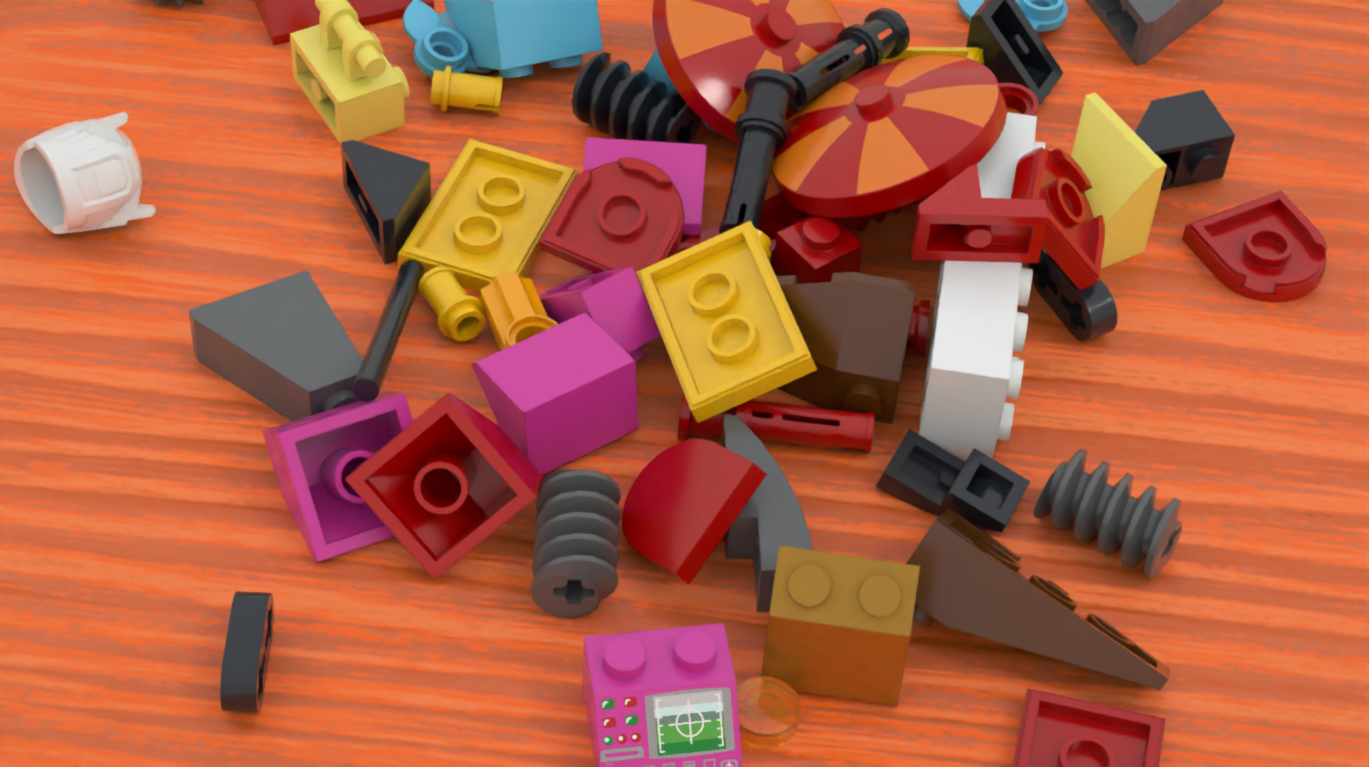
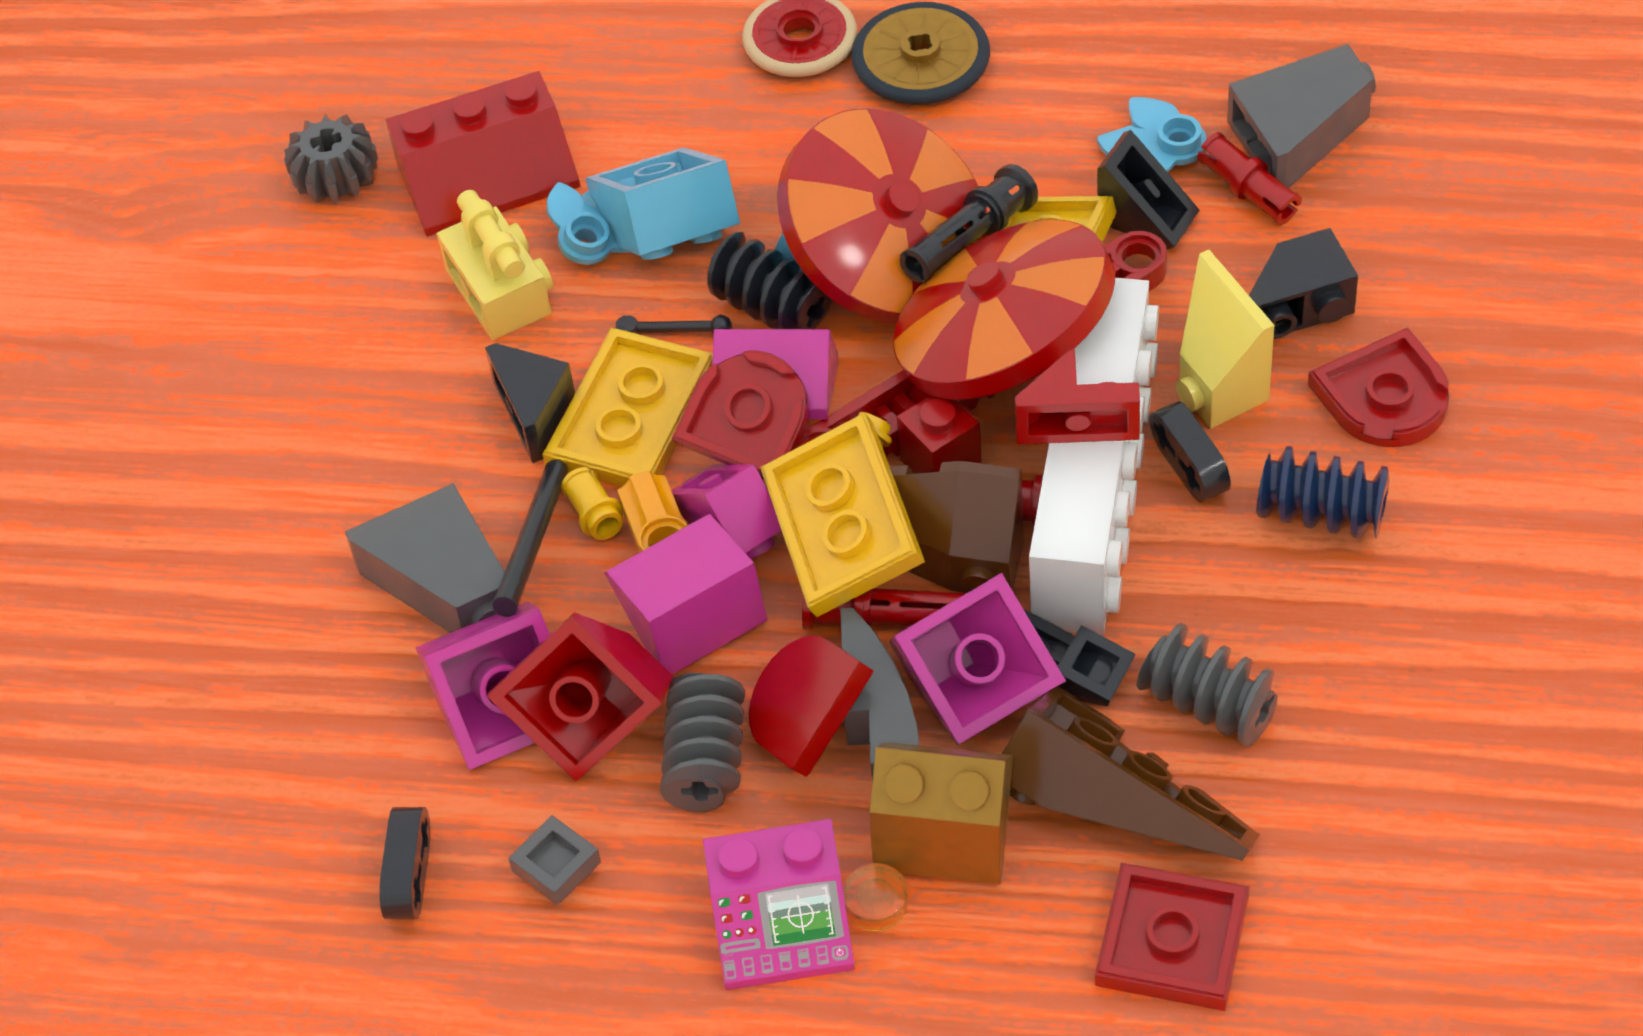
camera: 10 degrees right, 5 degrees up
(82, 176) = (246, 398): white helmet -> none
(413, 656) = (554, 860): none -> dark grey plate
(465, 90) = (608, 276): yellow pin -> none
(576, 145) = (630, 324): none -> black hinge
(760, 134) = (882, 312): black pin -> none
(868, 473) = (977, 659): none -> dark pink slope
(1071, 233) = (1171, 379): red tile -> none
(1113, 45) = (1249, 178): none -> red pin
(1215, 335) = (1323, 493): none -> dark blue piece

